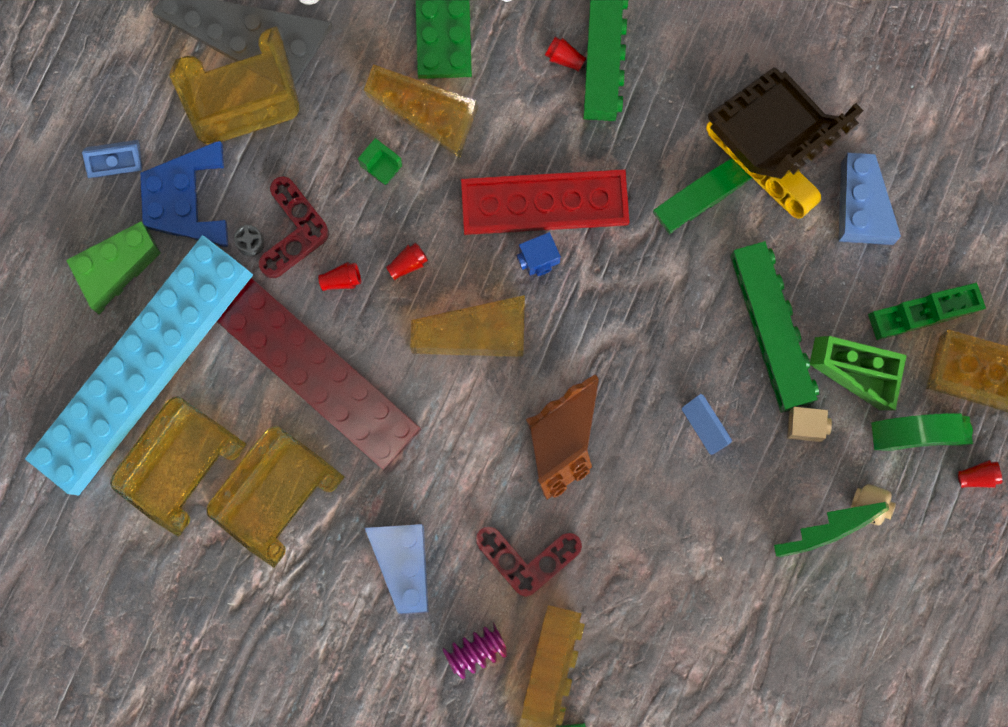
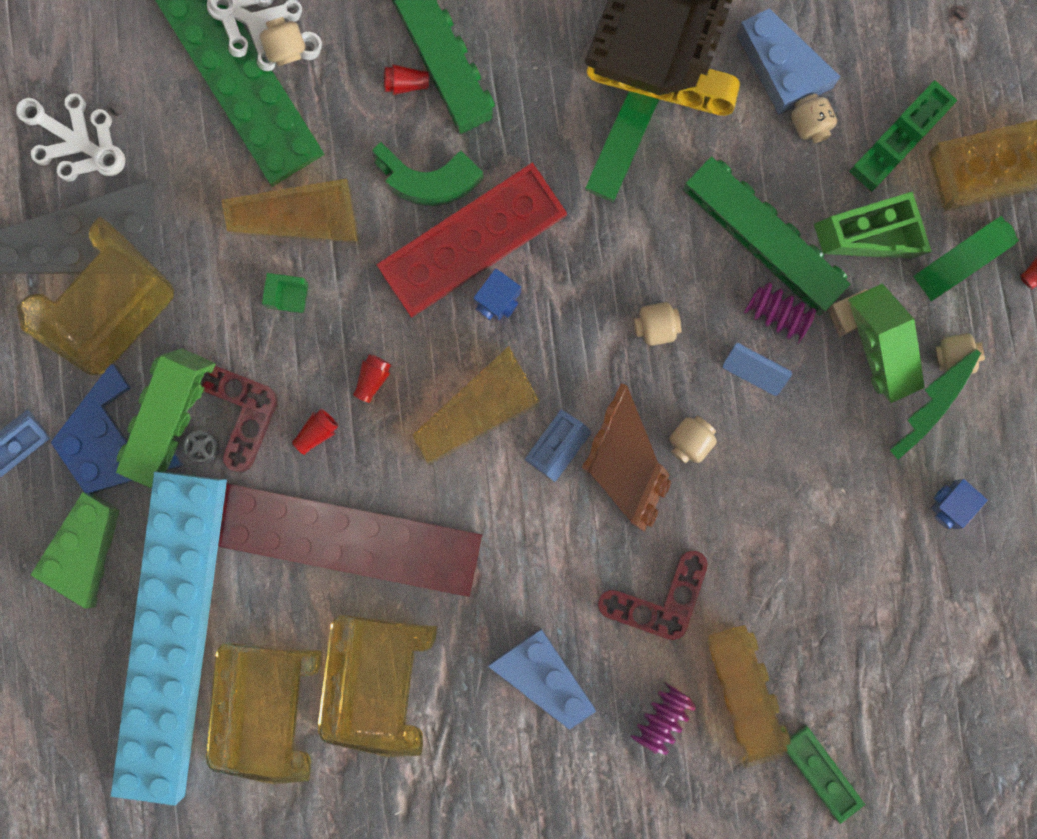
camera: 30 degrees left, 5 degrees up
(234, 197) = (162, 414): none -> bright green wedge
(519, 395) = (558, 445): none -> medium blue slope
(540, 147) = (428, 188): none -> green arch
(625, 449) = (692, 440): none -> tan head
(650, 345) = (658, 324): none -> tan head
(750, 390) = (781, 311): none -> magenta piece
(803, 619) = (957, 504): none -> blue brick
(820, 461) = (888, 342): none -> bright green wedge
(863, 258) = (813, 118): none -> tan head

